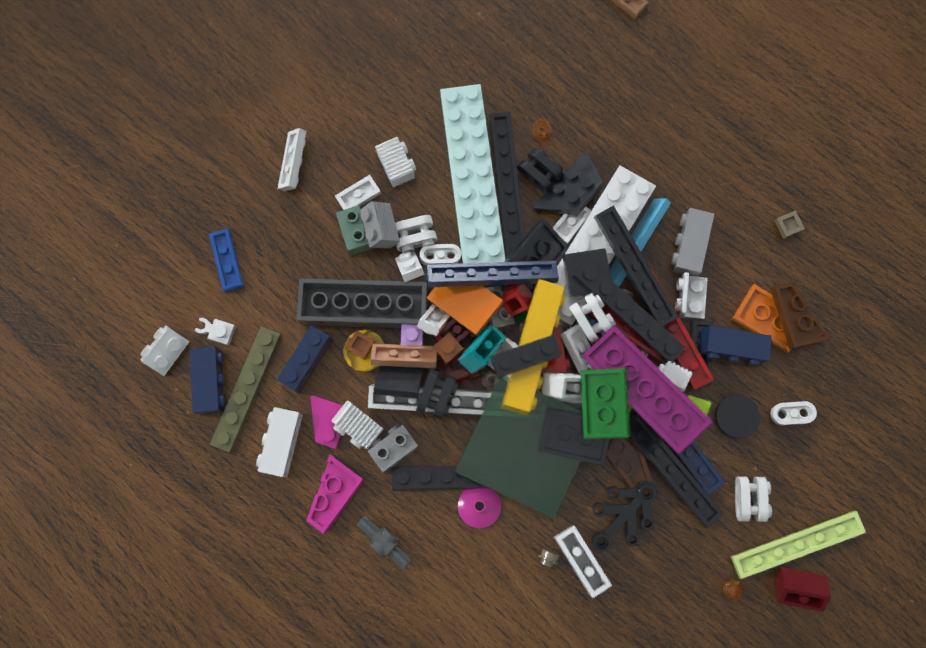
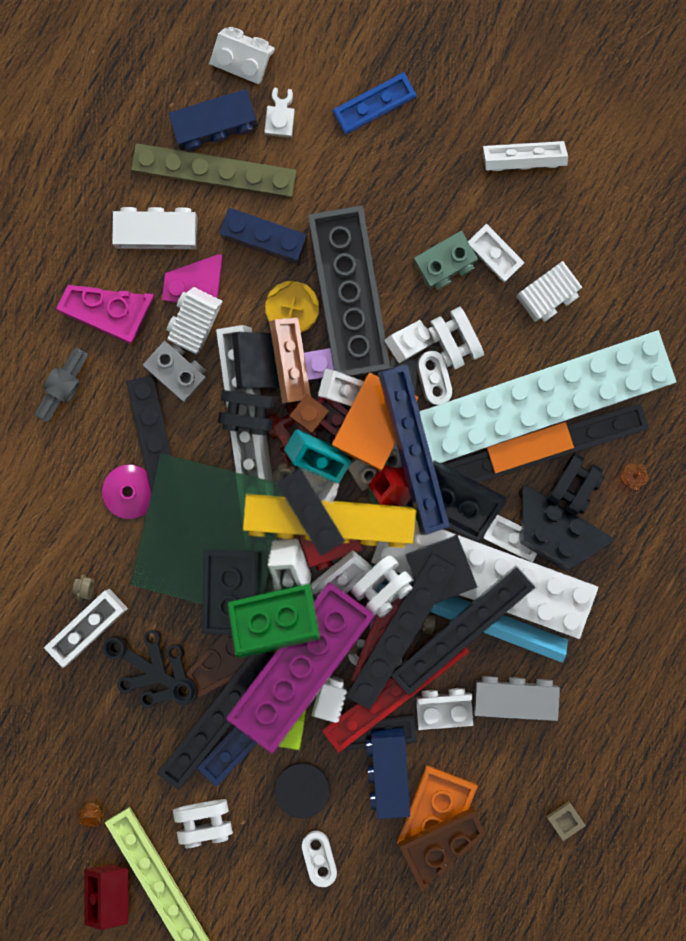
camera: 75 degrees right, 10 degrees up
(360, 345) = (295, 302): dark orange plate -> none
(379, 225) = (455, 291): light grey brick -> none
(507, 195) = (530, 447): none -> orange tile

